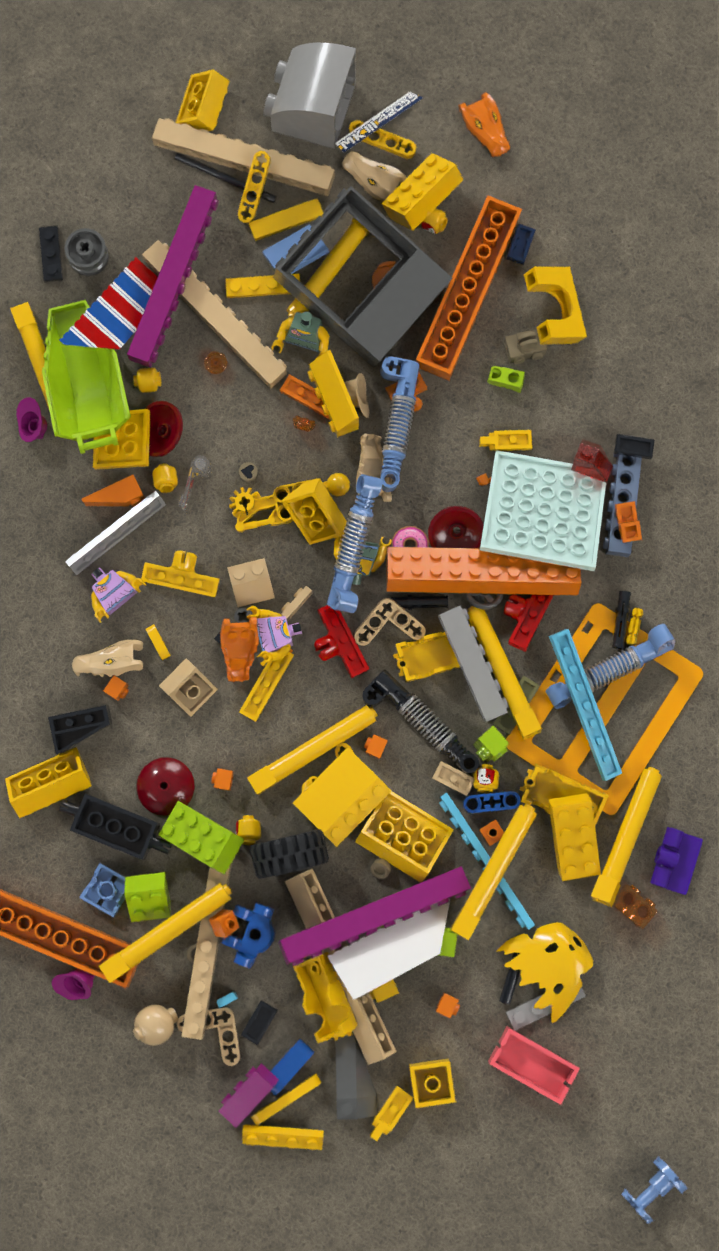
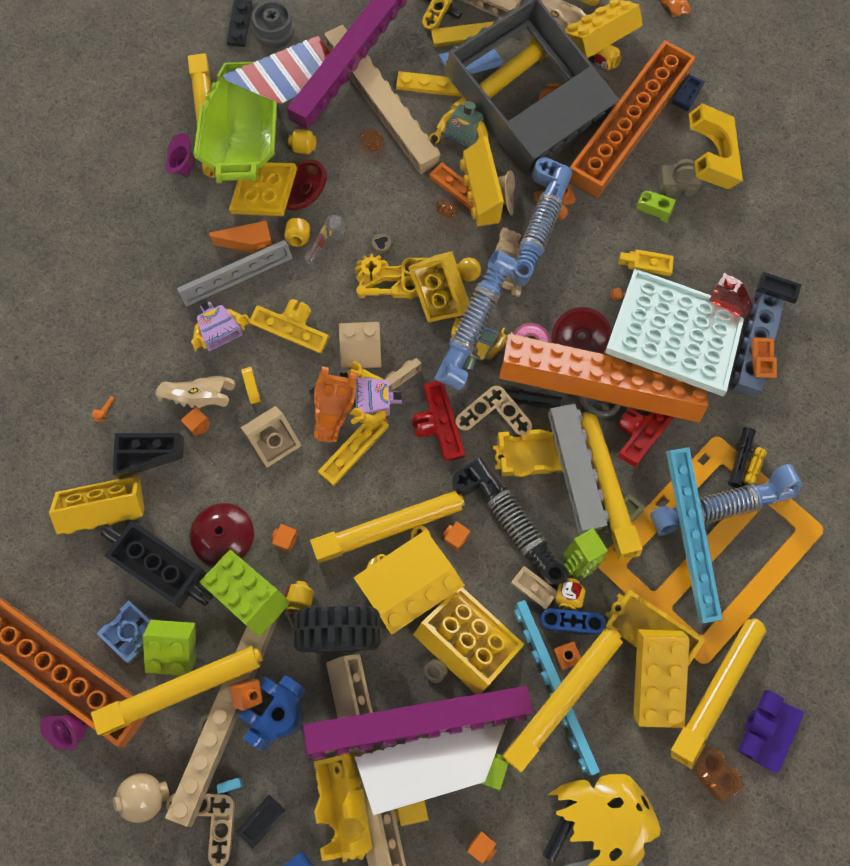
camera: 10 degrees right, 10 degrees down
(24, 698) = (98, 414): none -> orange hand

